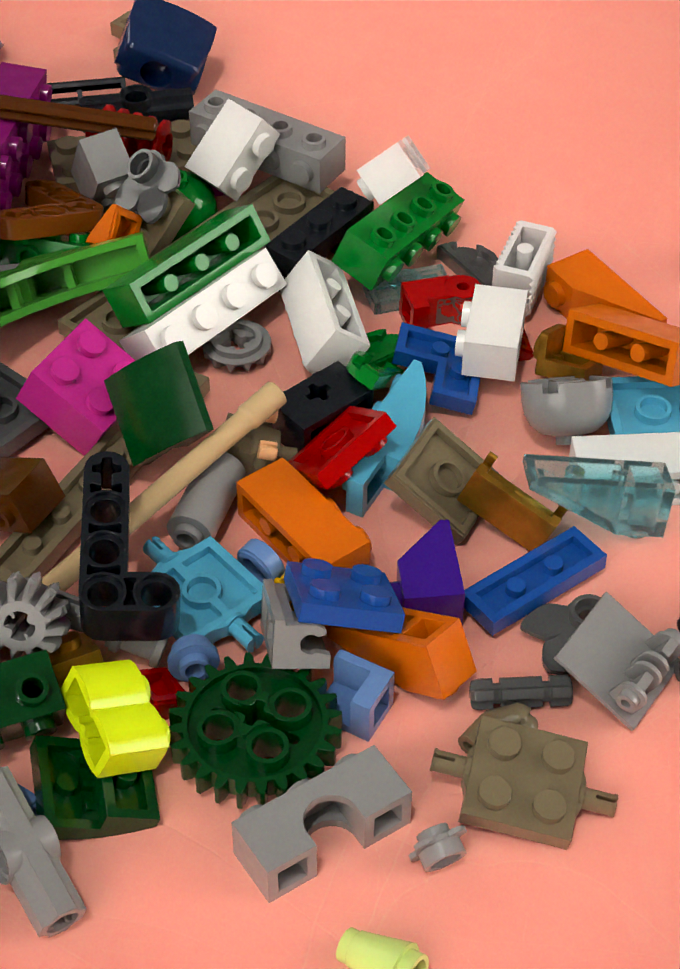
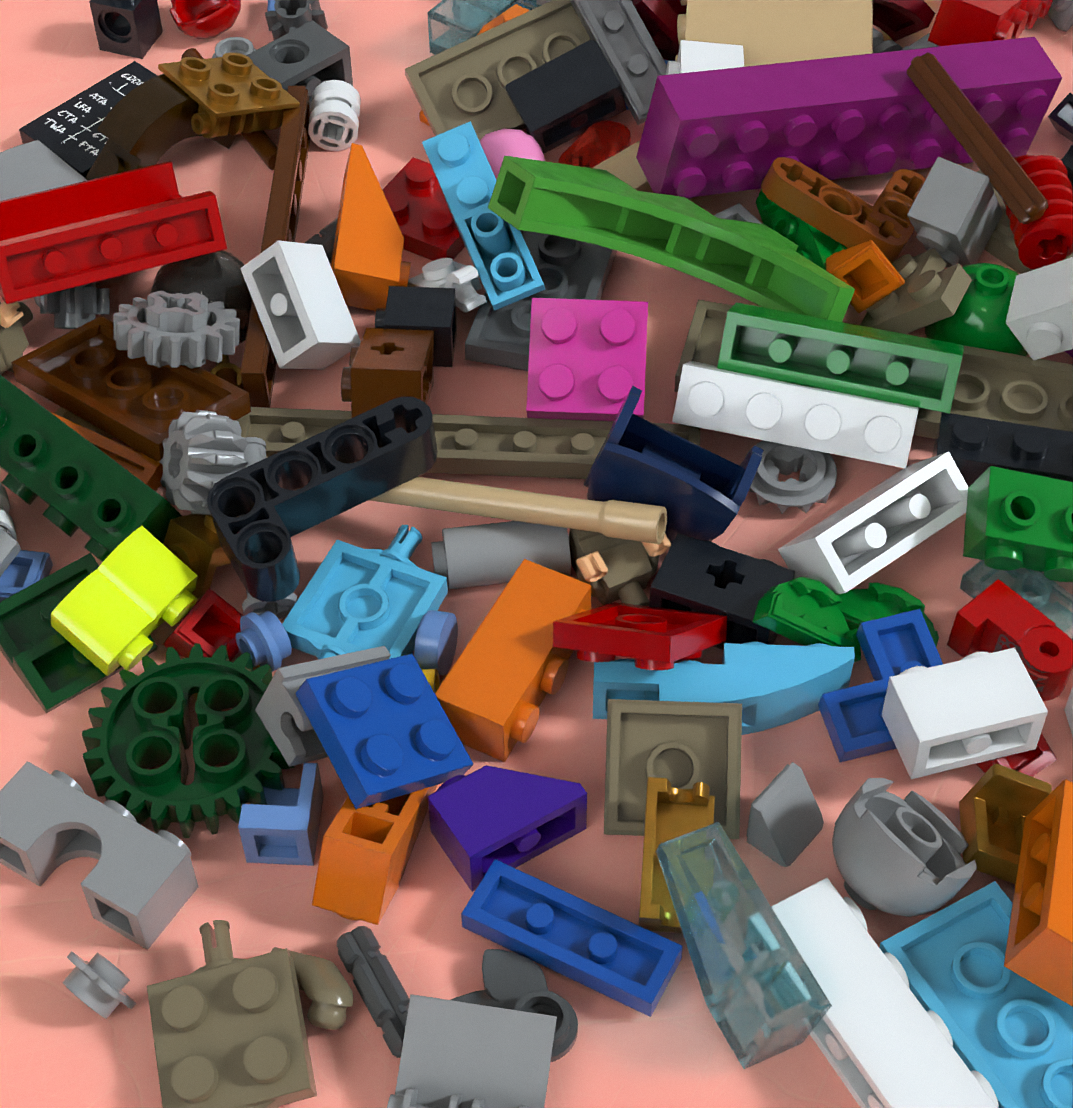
camera: 65 degrees right, 5 degrees up
(148, 184) = (936, 254): dark grey plate -> none
(158, 404) = (566, 426): dark green slope -> none
(237, 373) = (665, 470): none -> dark blue piece
(491, 439) = (784, 817): none -> light grey slope

